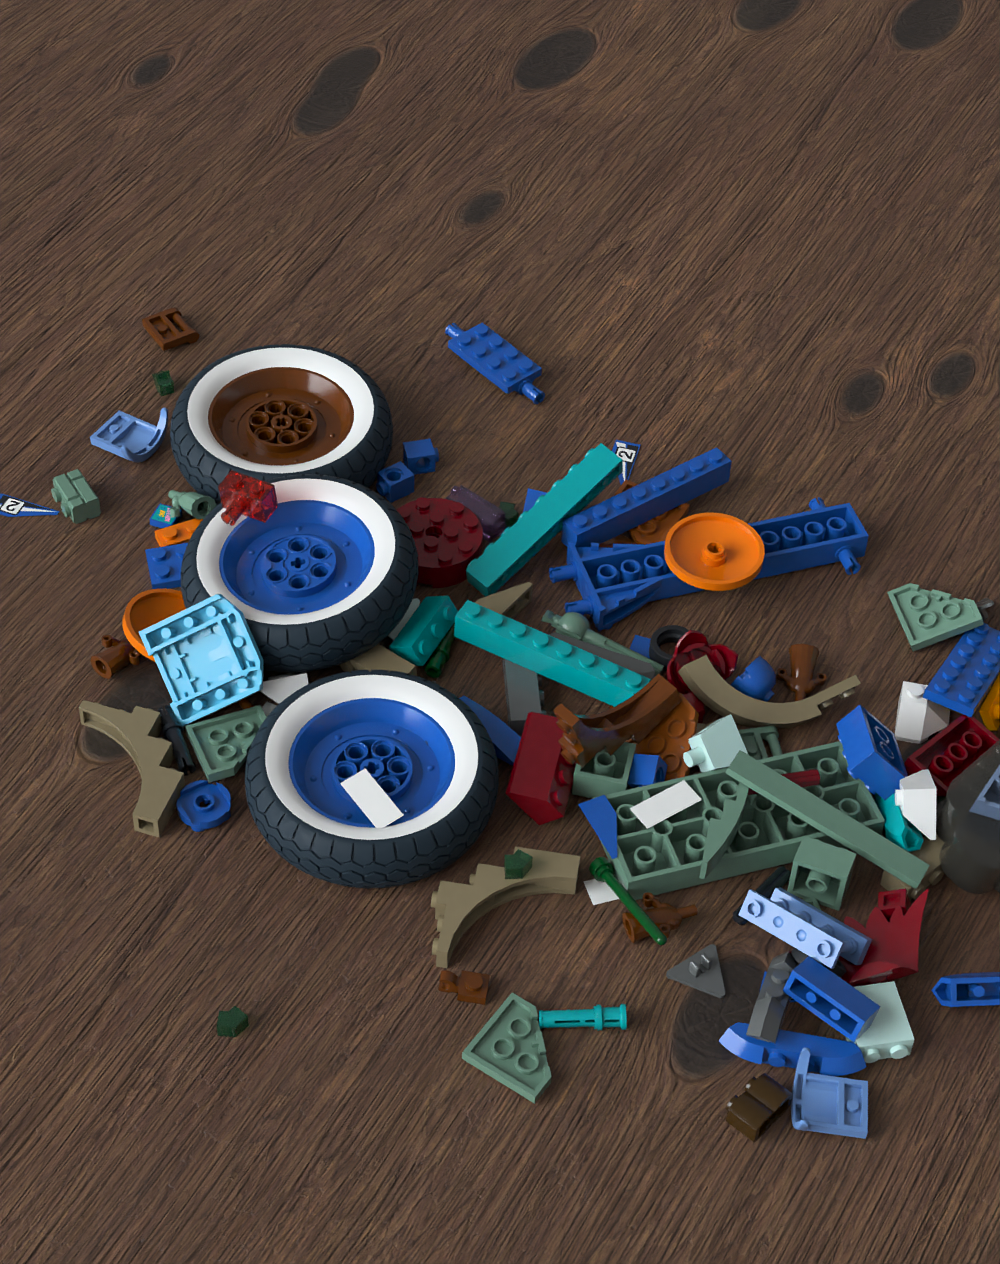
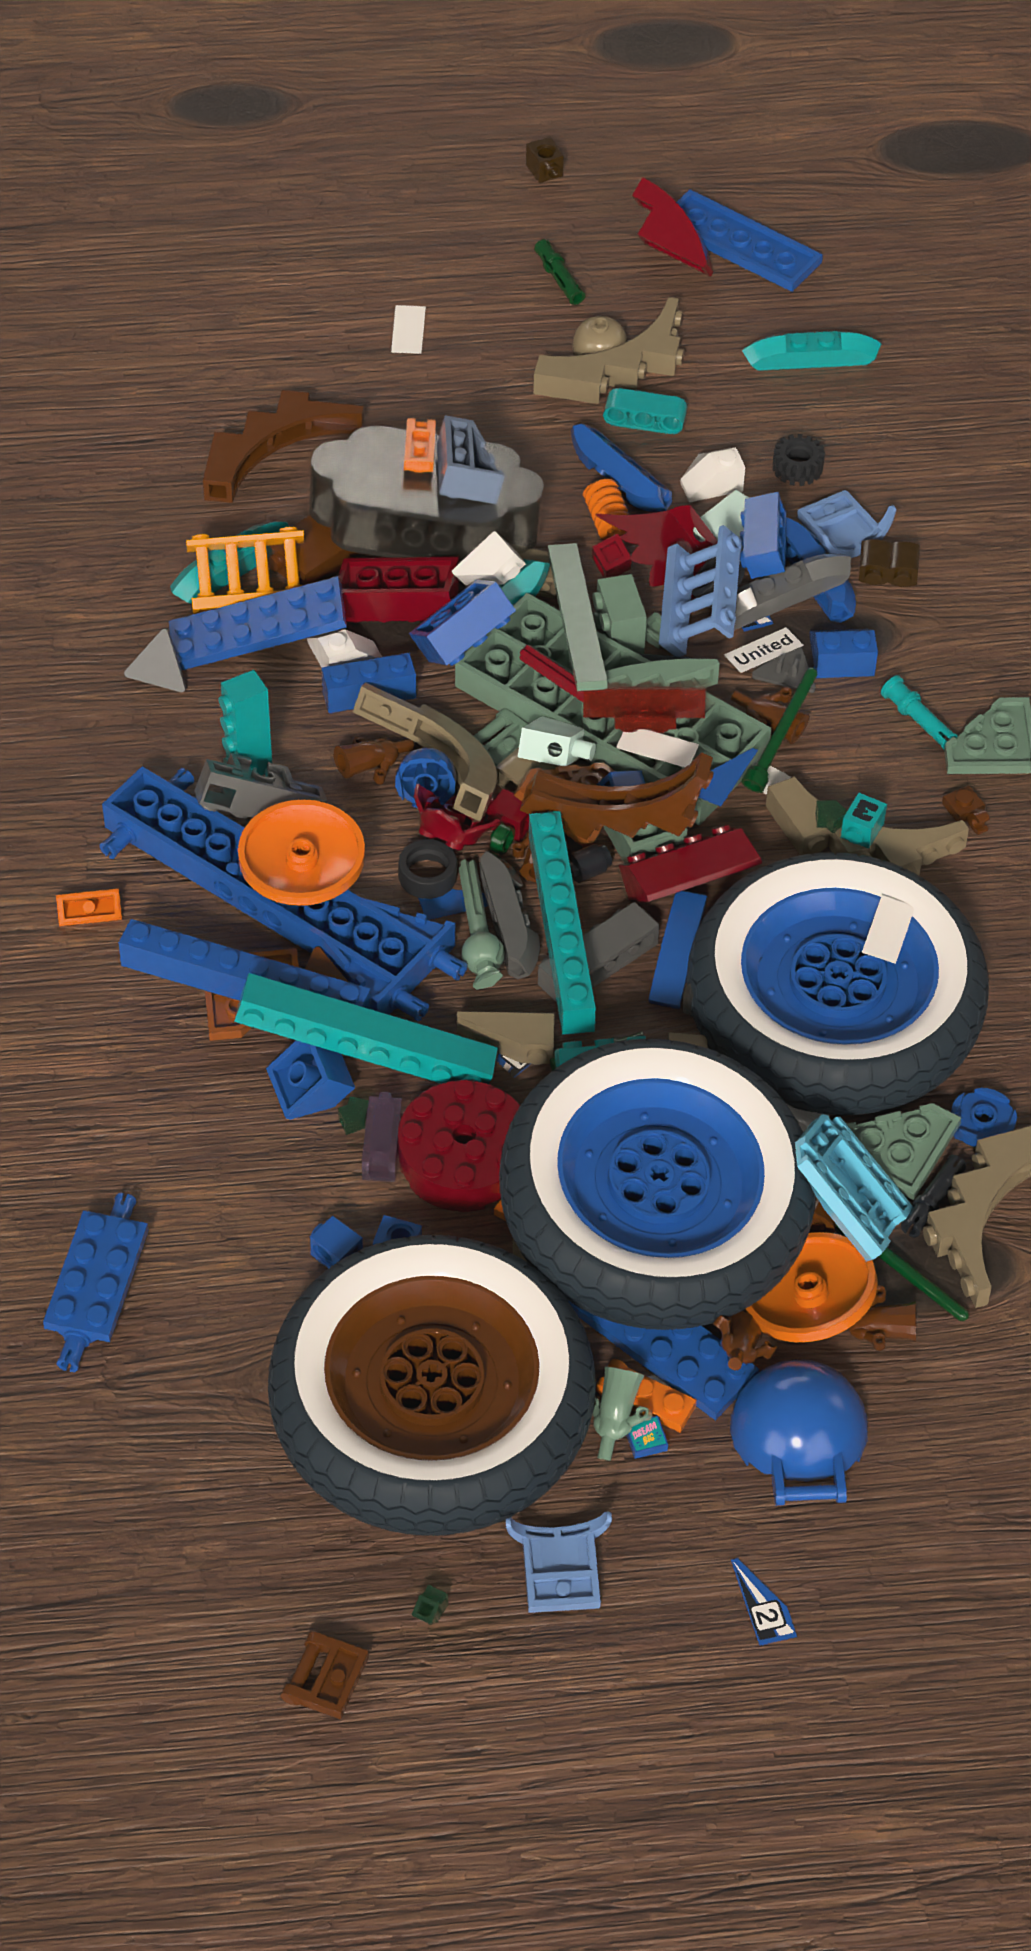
camera: 125 degrees left, 5 degrees up
(75, 496) = (704, 1542): sand green brick -> none
(93, 577) = (800, 1426): none -> blue windscreen
(129, 695) = (921, 1283): none -> dark green piece
(165, 563) = (740, 1337): none -> reddish brown piece
(246, 497) = (642, 1237): clear red brick -> none
(491, 875) = (863, 820): none -> teal brick
(628, 453) = (158, 1071): sticker -> none
(690, 1011) = (844, 652): none -> blue slope
(695, 803) = (645, 706): none -> clear red bracket
(733, 968) = (763, 650): none -> white sticker
(782, 486) = (89, 907): none -> orange slope
(799, 579) = (246, 791): none -> dark grey piece
(854, 585) = (246, 719): none -> teal brick
(877, 691) = (390, 673): none -> blue brick
(925, 1141) = (794, 470): none -> black tyre
(932, 615) = (196, 686): sand green plate -> none
(959, 949) = (605, 498): none -> orange piece
(960, 1061) = (714, 475): none -> white slope

